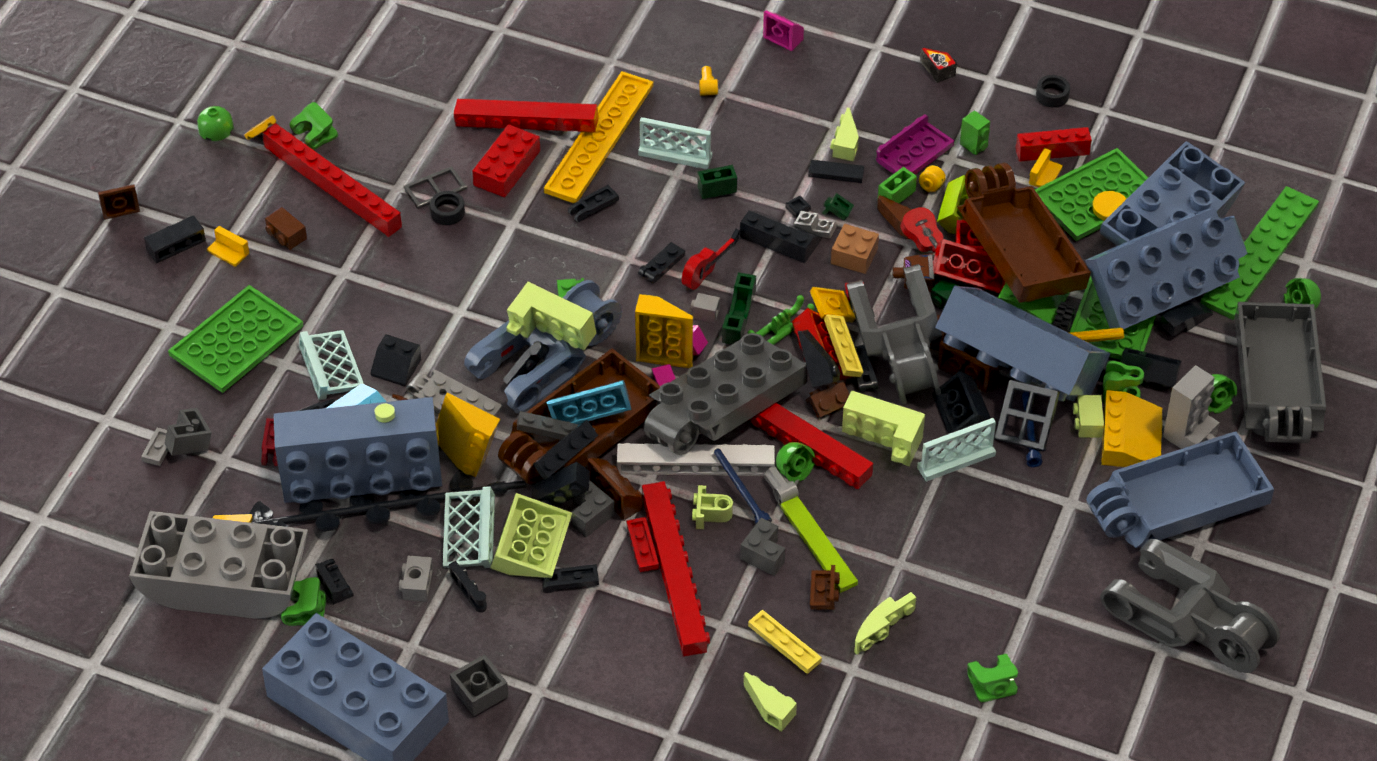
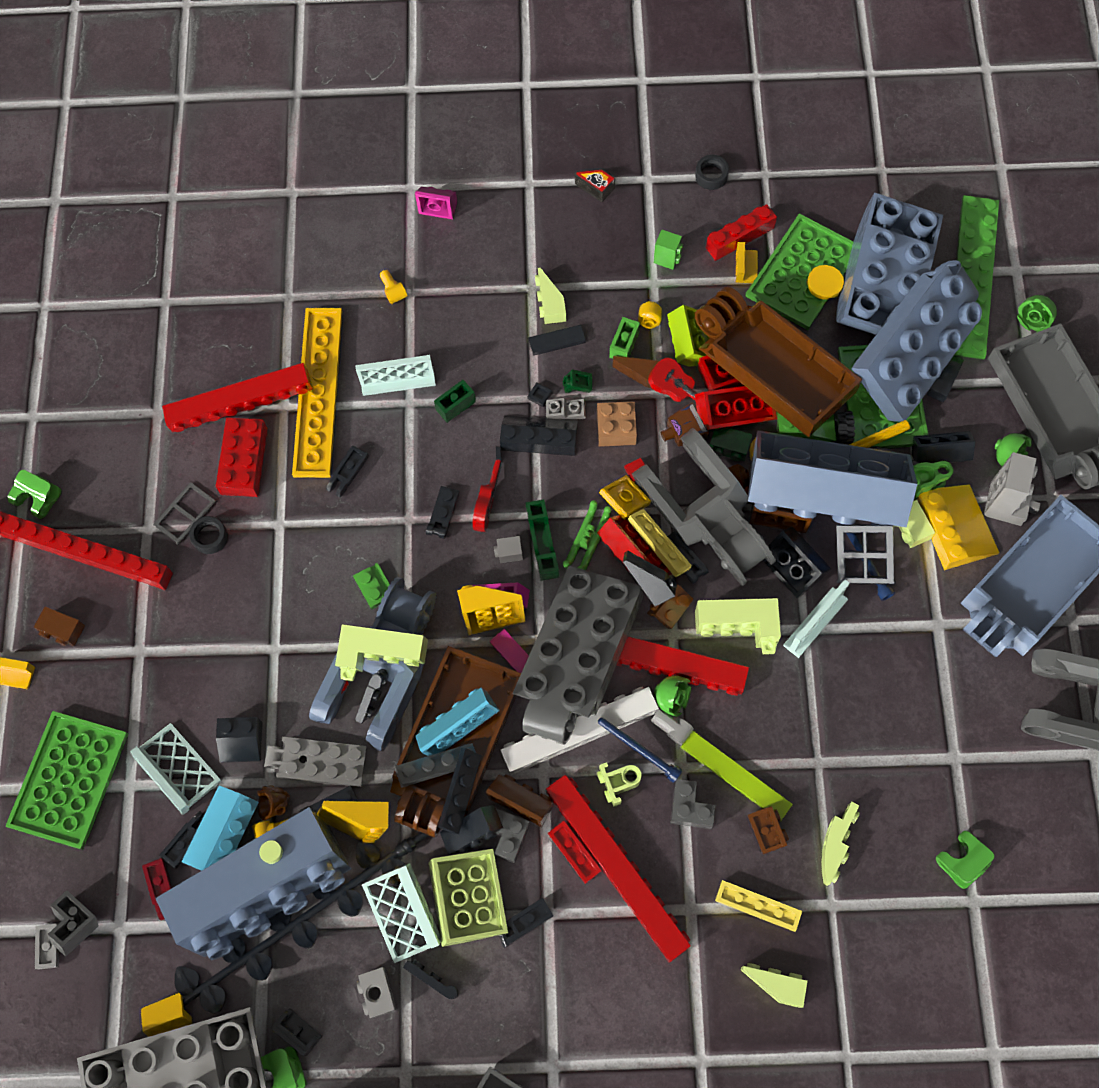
camera: 20 degrees left, 20 degrees up
(913, 147) = (617, 287): magenta bracket -> none

